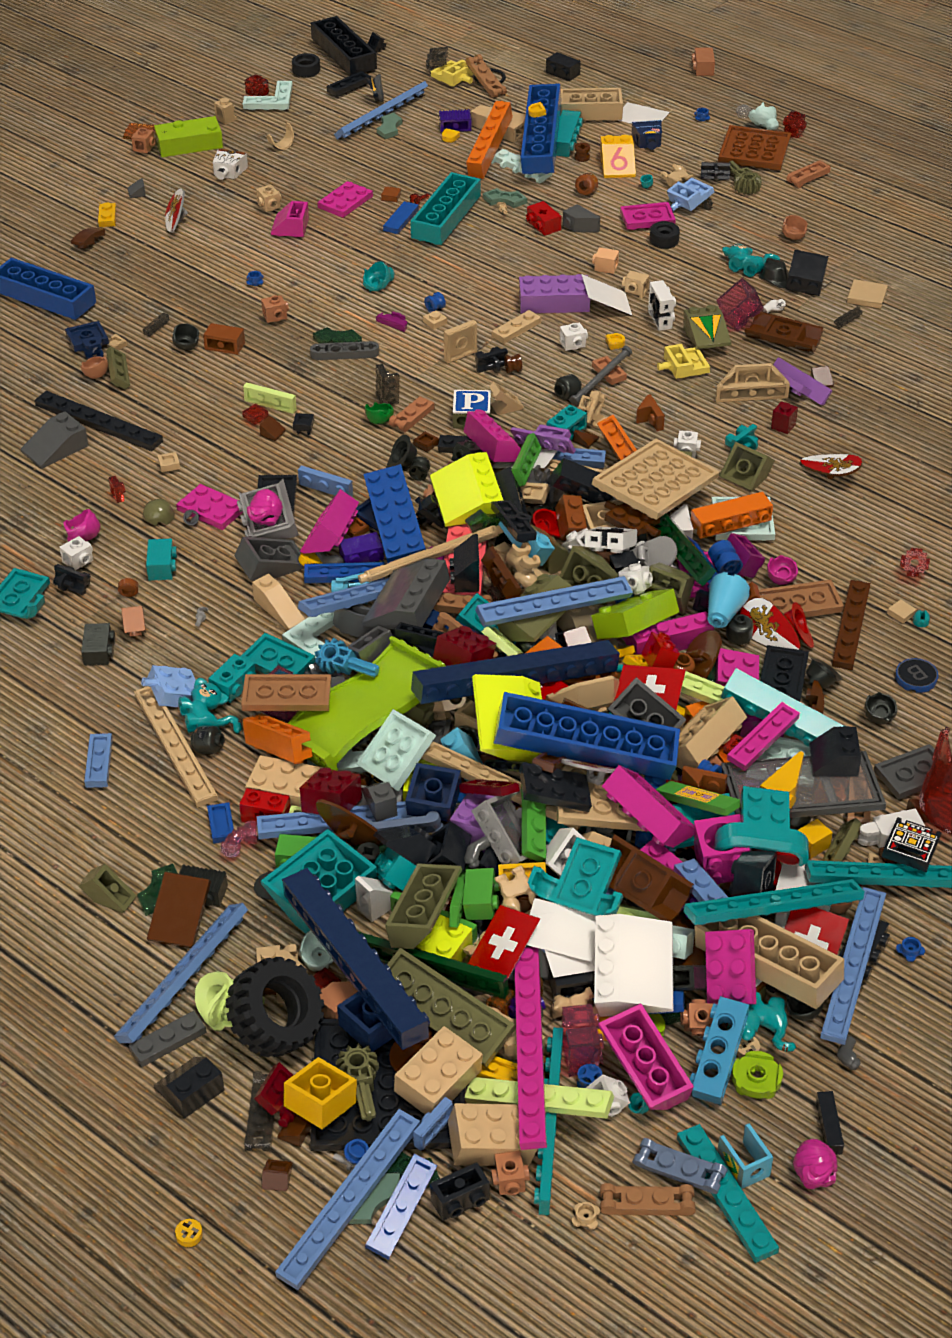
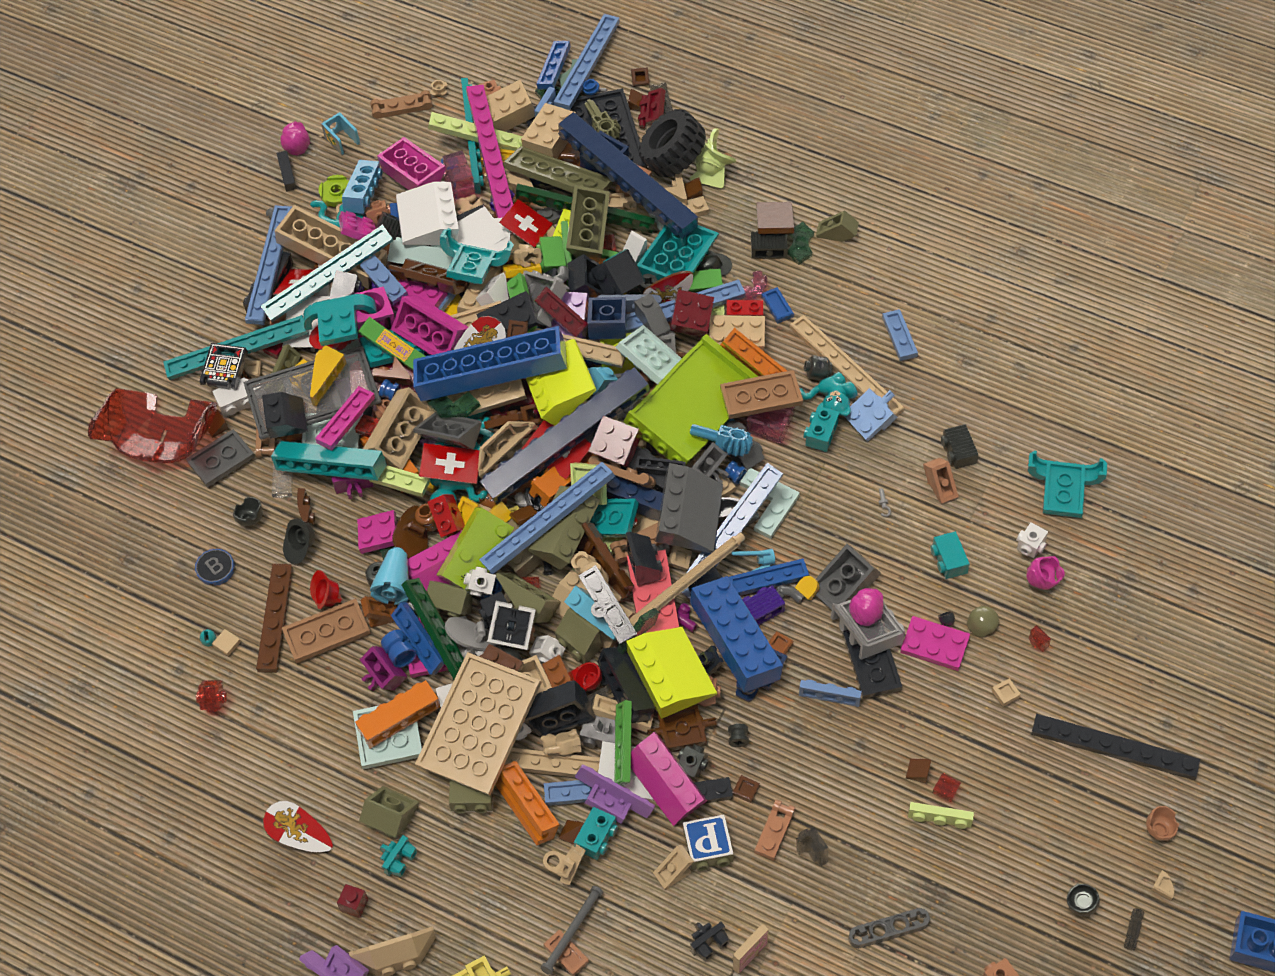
camera: 170 degrees right, 15 degrees up
(55, 440) = (1139, 698): dark grey slope -> none
(70, 579) = (1014, 512): black hips -> none
(88, 338) = (1189, 869): dark blue plate -> none
(118, 368) = (1135, 831): olive plate -> none
(128, 587) = (964, 515): dark orange tile -> none
(167, 1039) = (746, 140): dark grey plate -> none
(177, 978) = (753, 181): medium blue plate -> none
(188, 1233) = (681, 34): yellow tile -> none
(191, 1085) = (717, 110): black slope -> none
(224, 338) = (1037, 911): dark orange brick -> none
(270, 652) = (797, 464): teal plate -> none
(276, 602) = (818, 526): tan slope -> none
(303, 422) = (886, 776): black tile -> none
(320, 1092) = (623, 101): yellow brick -> none
(331, 524) = (798, 615): dark pink slope -> none
(332, 336) = (916, 952): clear green tile -> none
(379, 413) = (809, 813): green hair -> none
(402, 453) = (762, 745): pearl dark grey piece -> none
(460, 1191) = (522, 70): black brick -> none
(513, 363) = (681, 937): reddish brown wheel -> none
(567, 386) = (607, 904): pearl dark grey head -> none
(618, 1089) = (436, 147): white brick -> none
(651, 412) = (507, 882): dark orange slope -> none
(680, 1166) = (382, 121): sand blue plate -> none
(687, 442) = (457, 828): white brick -> none
(731, 1198) = (366, 134): teal plate -> none
(770, 624) = (348, 584): shield -> none
(782, 570) = (343, 661): dark pink hair -> none
(785, 670) = (336, 533): black plate -> none
(910, 948) = (228, 303): blue plate -> none

